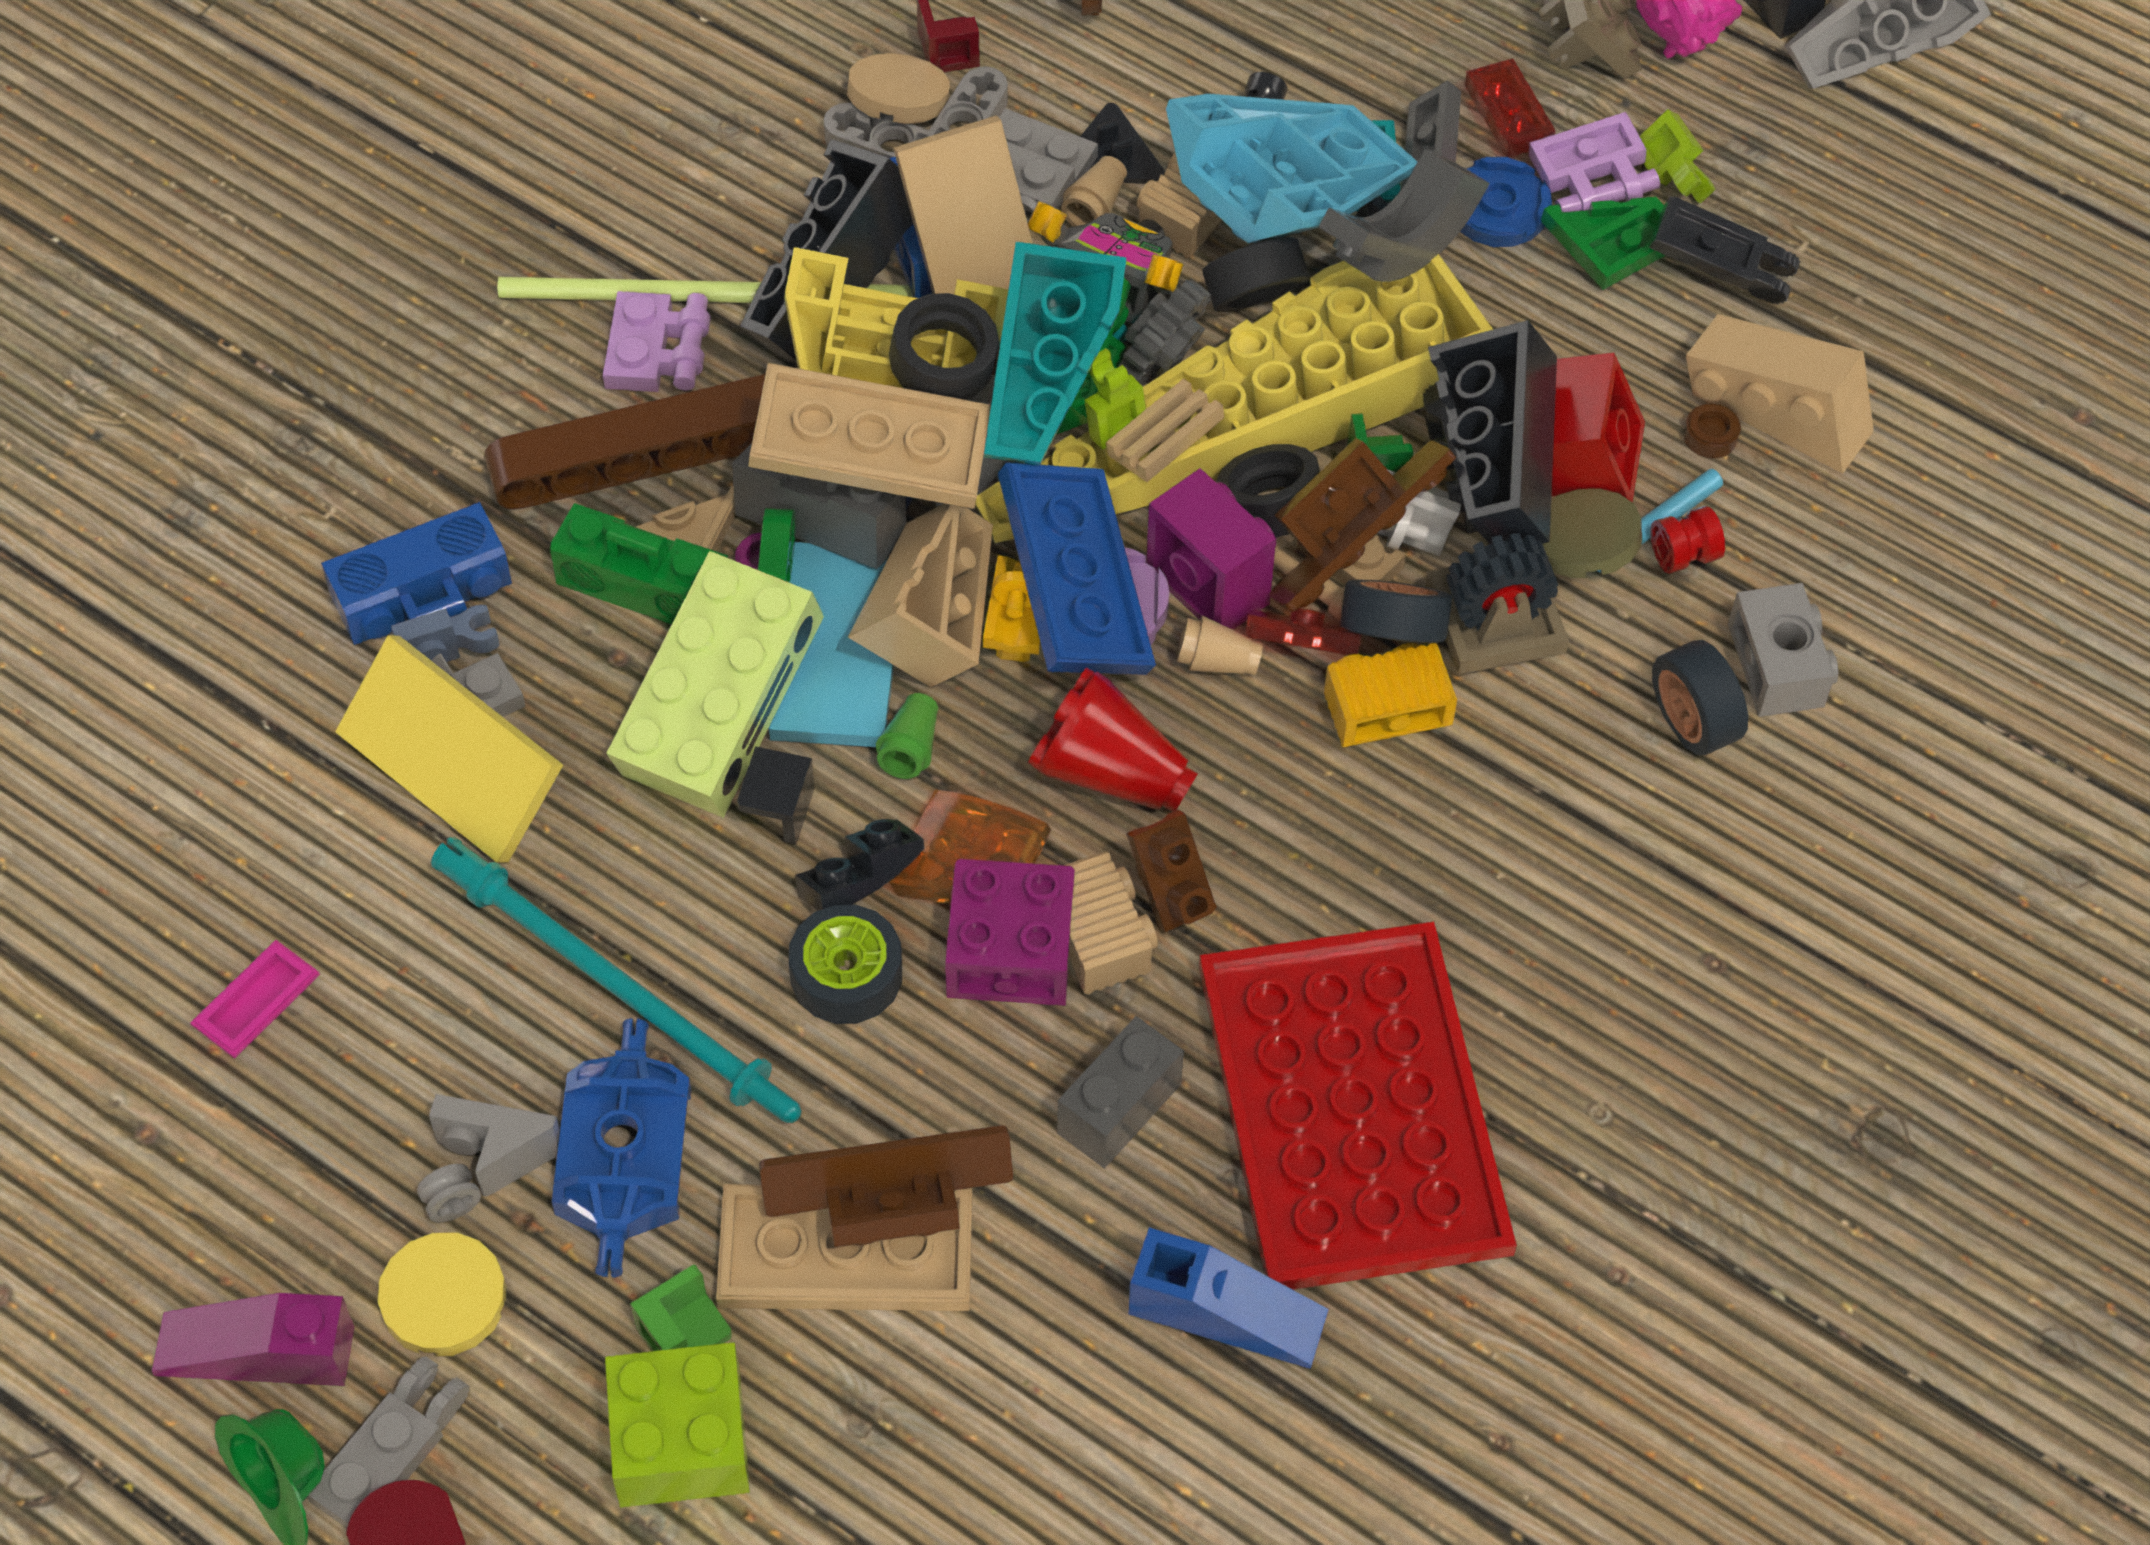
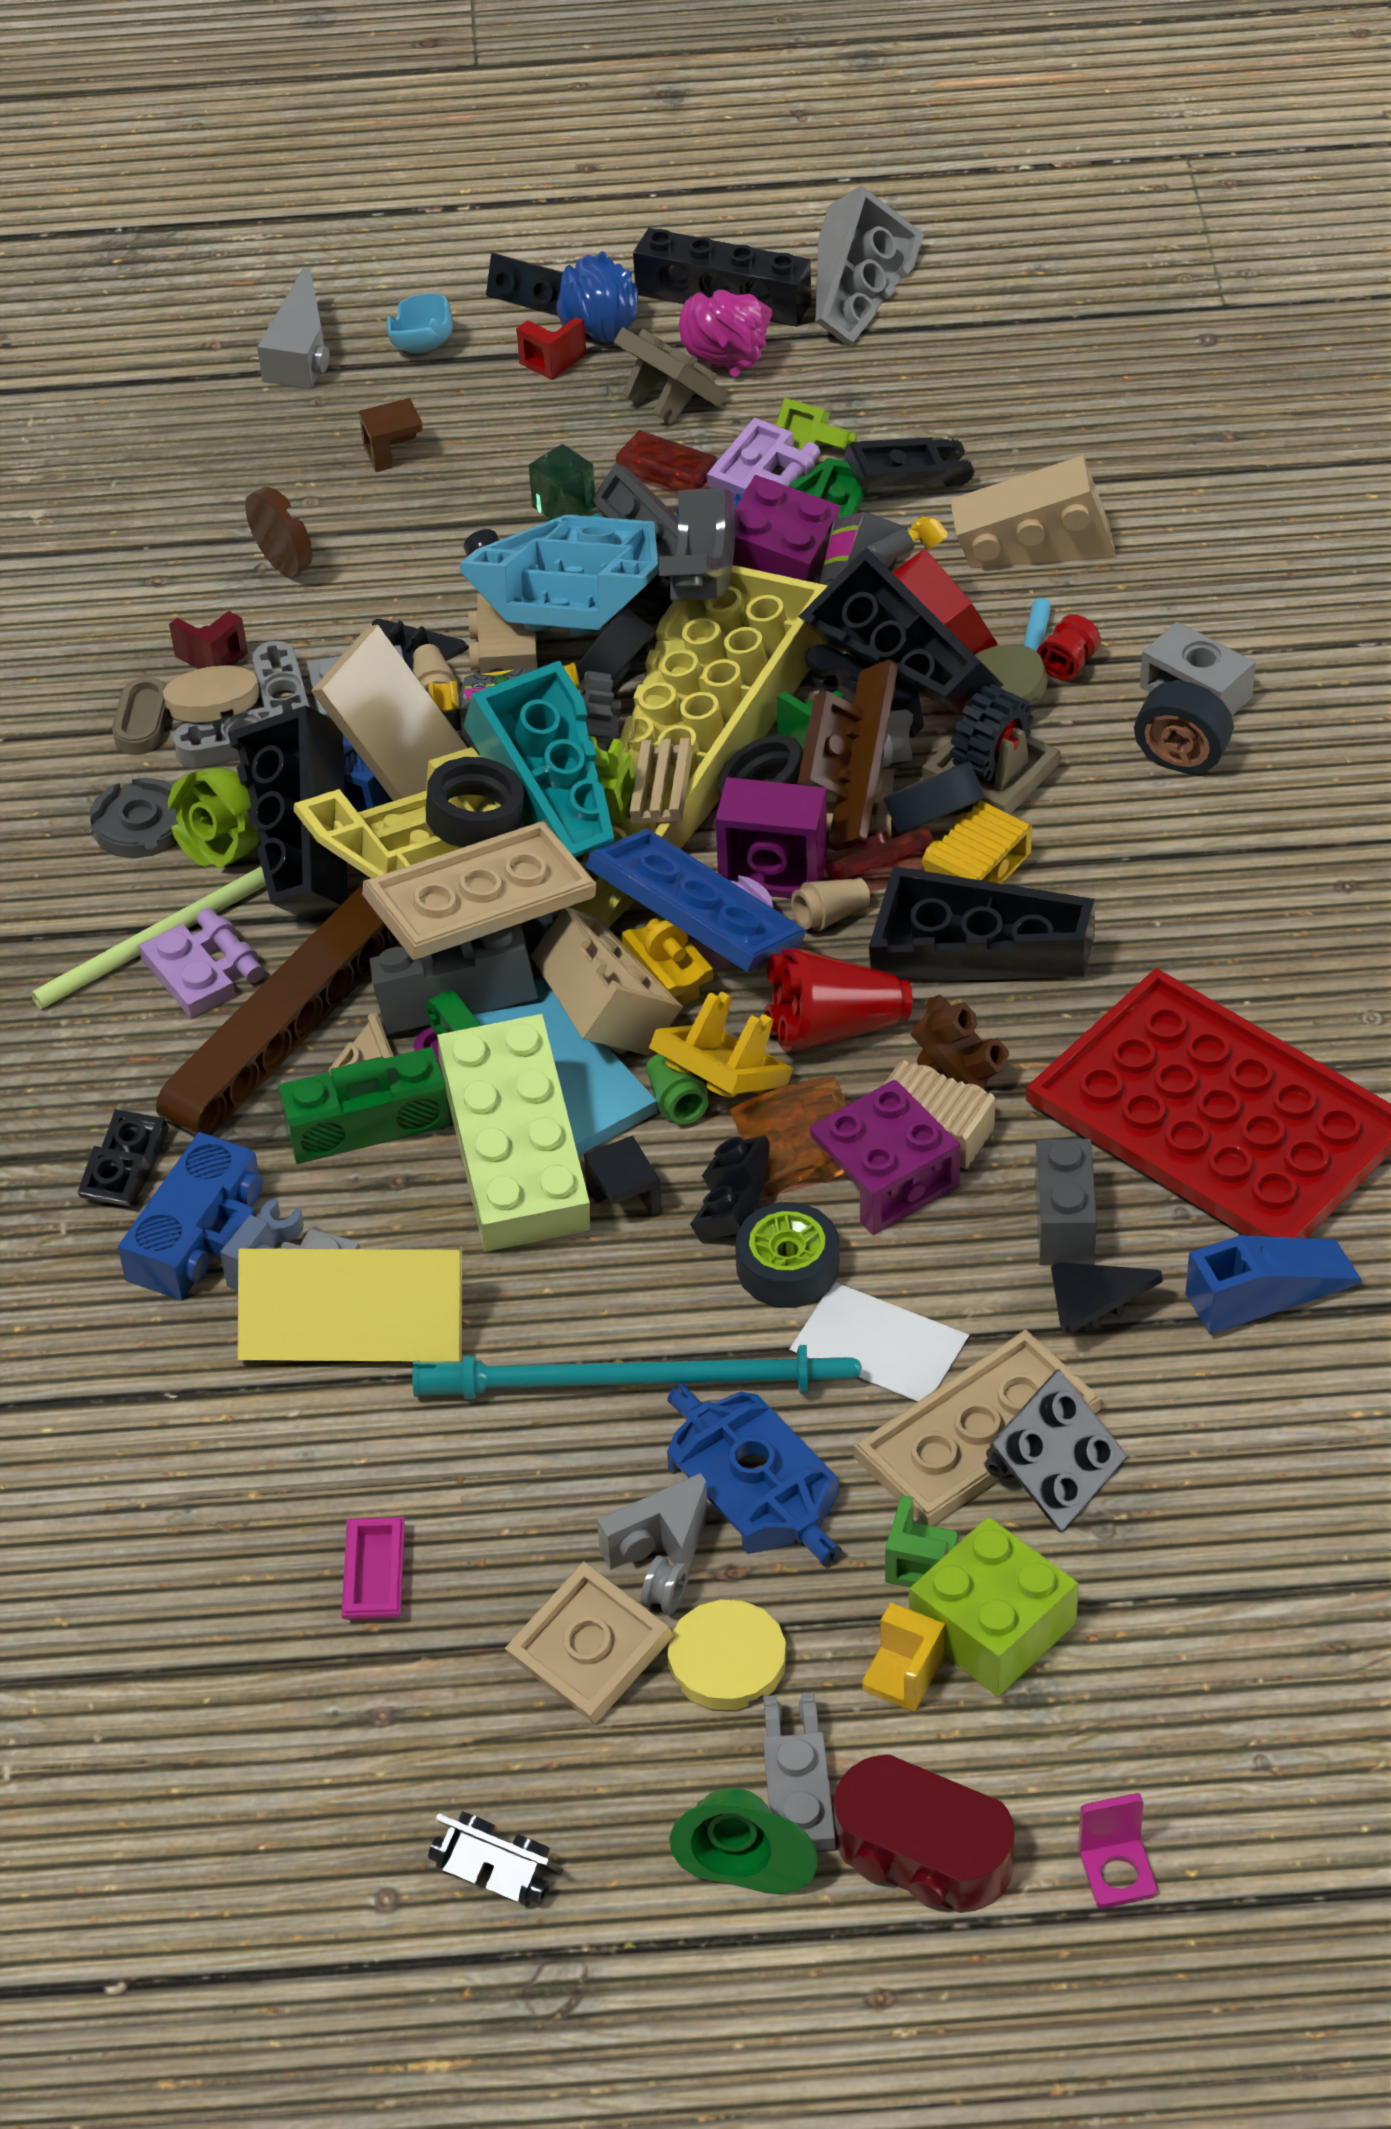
camera: 35 degrees left, 10 degrees down
(89, 1304) = (517, 1865): none -> hinge
(259, 1340) = (629, 1774): magenta slope -> none
(343, 1198) = (589, 1642): none -> tan tile
(433, 482) = (125, 1159): none -> black slope
(569, 1416) = (907, 1657): none -> yellow panel
(738, 169) = (134, 819): none -> dark grey tile
(776, 205) = (212, 817): none -> lime cylinder
(825, 73) = (140, 716): none -> dark tan tile
(846, 1089) = (891, 1343): none -> white sticker
(872, 1324) = (1056, 1451): none -> hinge
(889, 1185) = (978, 1357): reddish brown bracket -> none
(964, 734) = (722, 1059): none -> yellow plate
(1059, 1195) = (1091, 1291): none -> black piece
(1301, 766) = (978, 930): none -> black wedge
(1388, 72) = (562, 483): none -> clear green brick
(1524, 252) = (782, 530): none -> magenta brick
(1585, 316) = (882, 537): none -> dark grey torso
(1712, 430) = (1009, 579): reddish brown tile -> none

